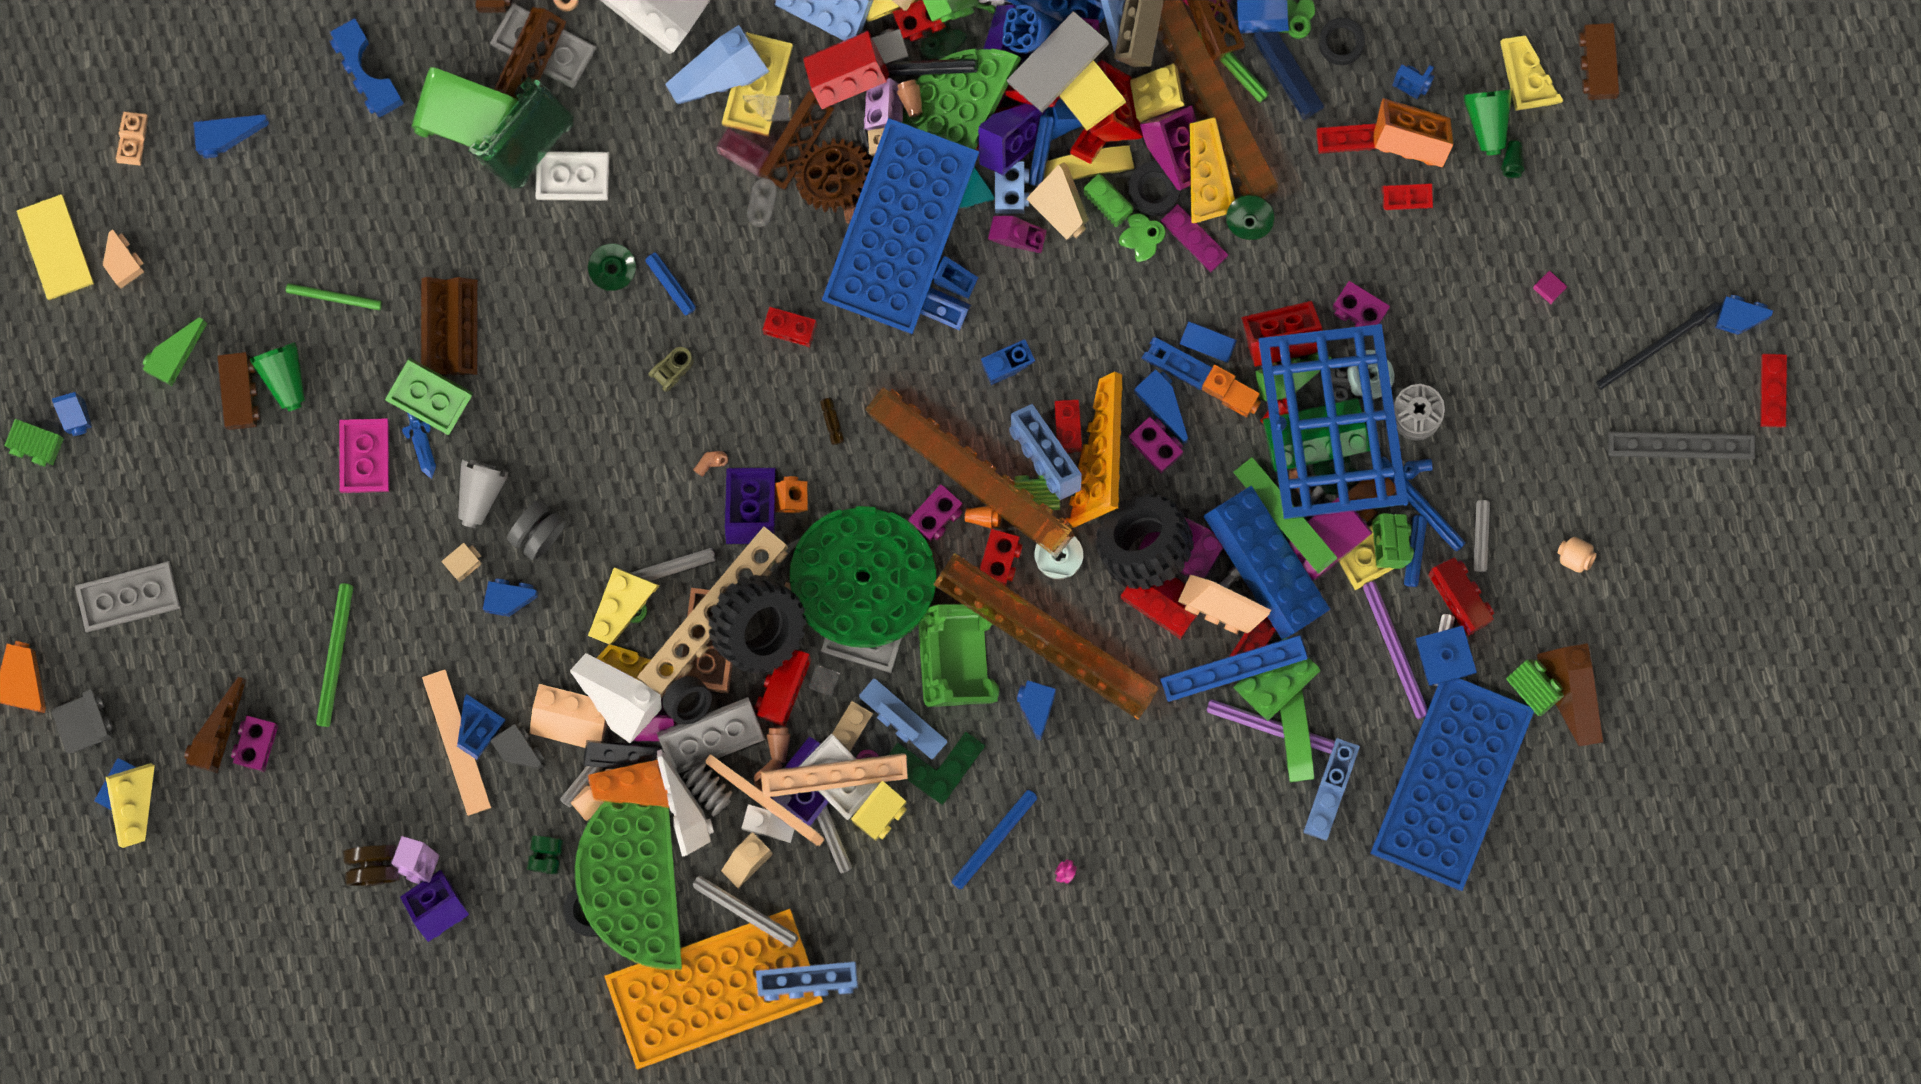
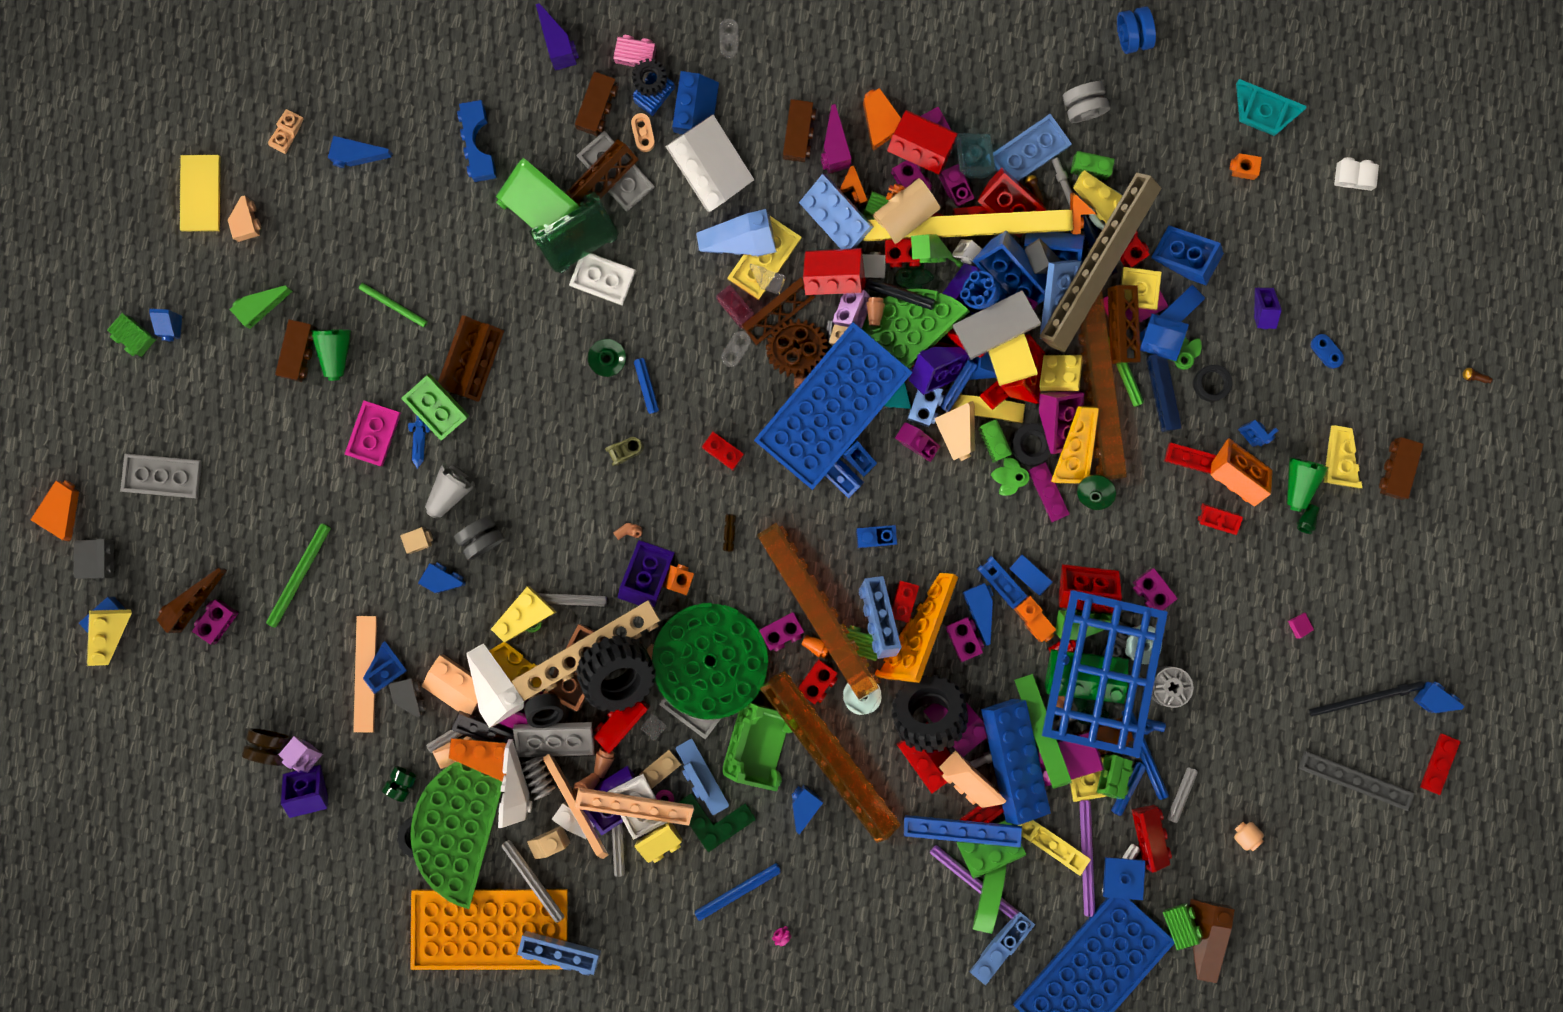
camera: 10 degrees right, 5 degrees up
(1348, 648) = (1055, 846): none -> light yellow slope

